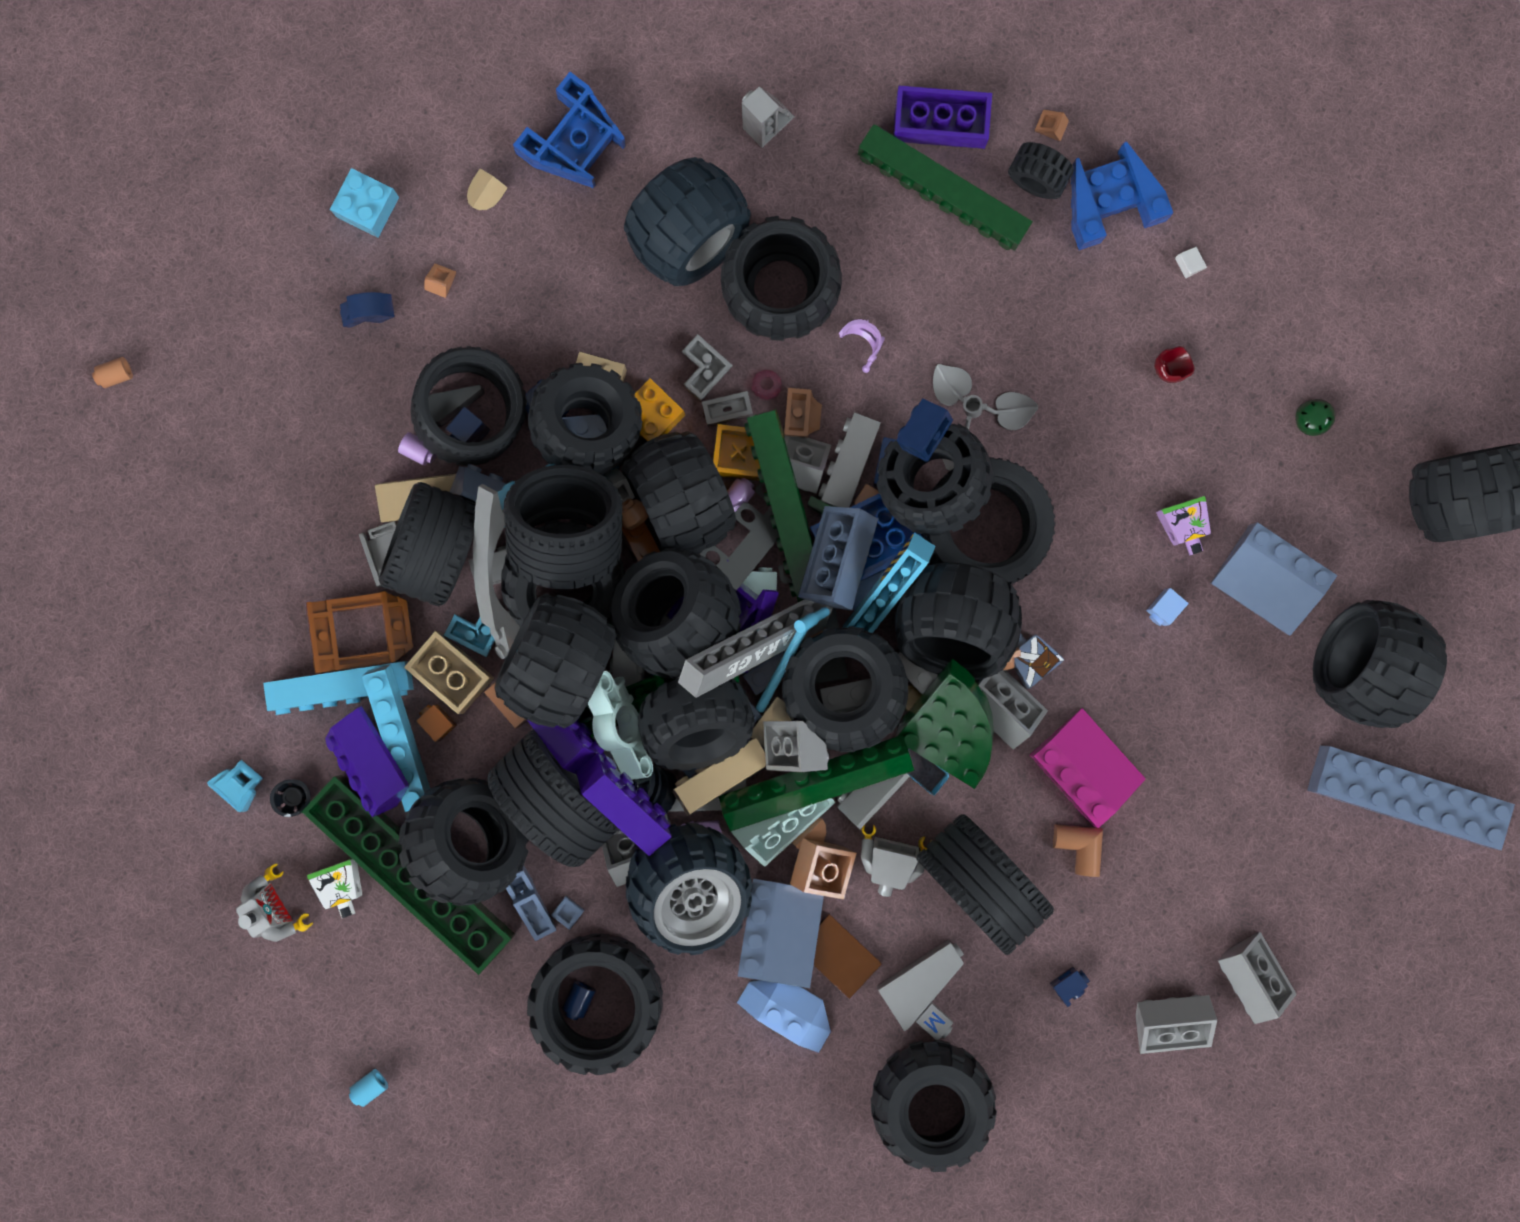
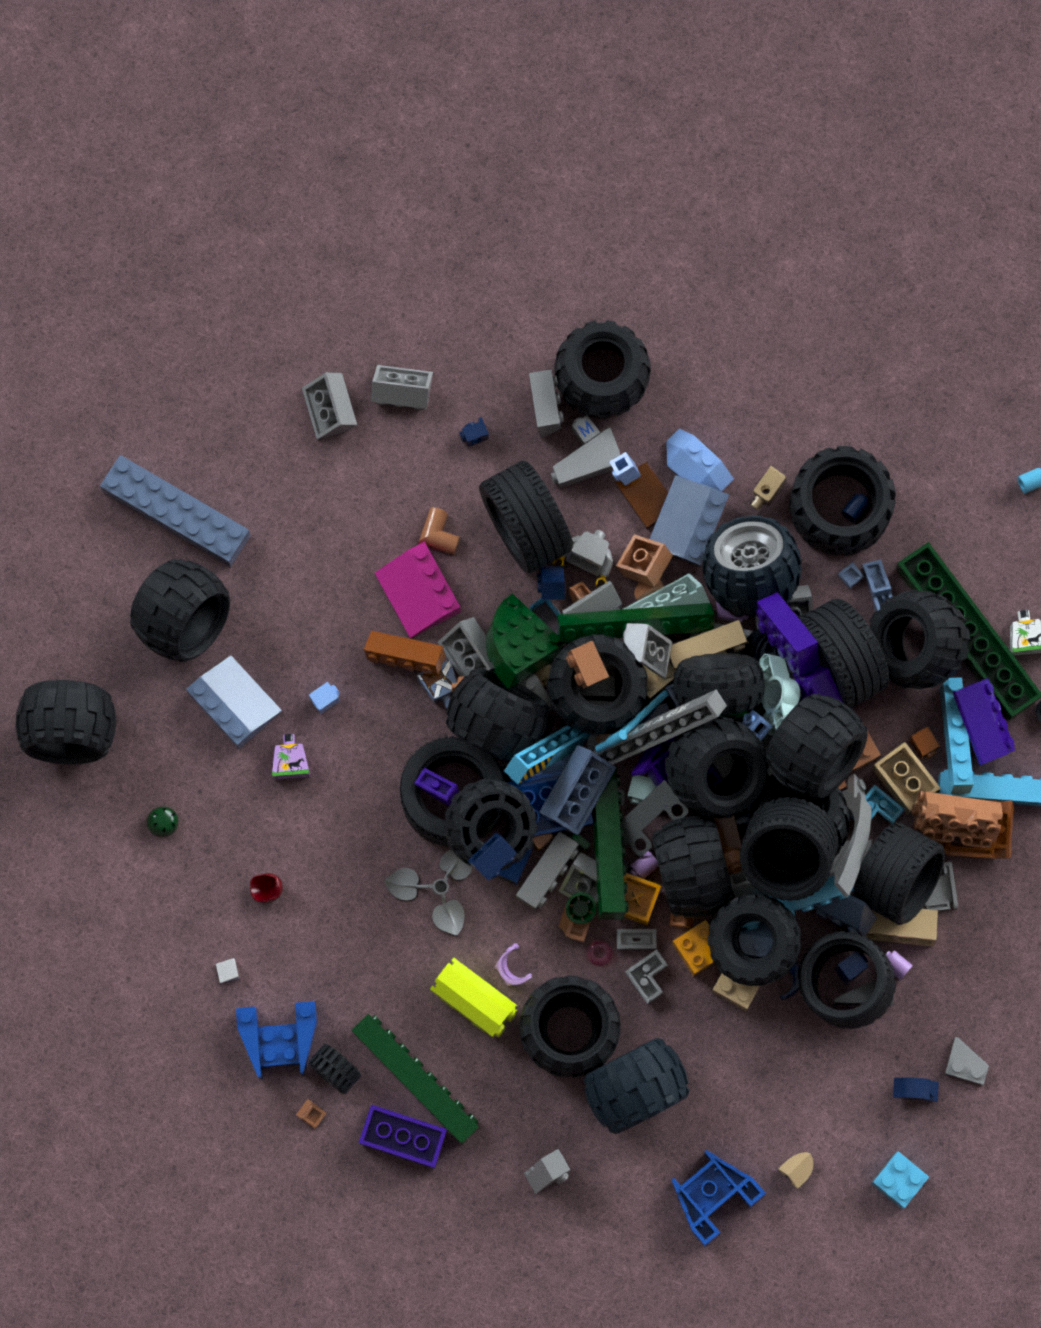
camera: 170 degrees left, 10 degrees down
(315, 354) = (966, 1064): none -> light grey wing
(382, 632) = (948, 816): none -> nougat brick
(439, 280) = (850, 1103): nougat slope -> none
(644, 683) = (753, 720): none -> light blue brick
(686, 1008) = (773, 481): none -> tan torso
(800, 423) = (581, 908): none -> dark green helmet
(865, 693) = (586, 664): none -> nougat brick
(874, 980) = (625, 469): none -> light blue brick
(891, 811) = (578, 591): none -> nougat slope
(899, 289) = (474, 998): none -> neon yellow brick
(929, 812) = (551, 582): none -> dark blue brick
(993, 1045) = (546, 402): none -> light grey slope
(1010, 516) = (436, 786): none -> dark purple slope
(1086, 683) = (404, 653): none -> dark orange brick

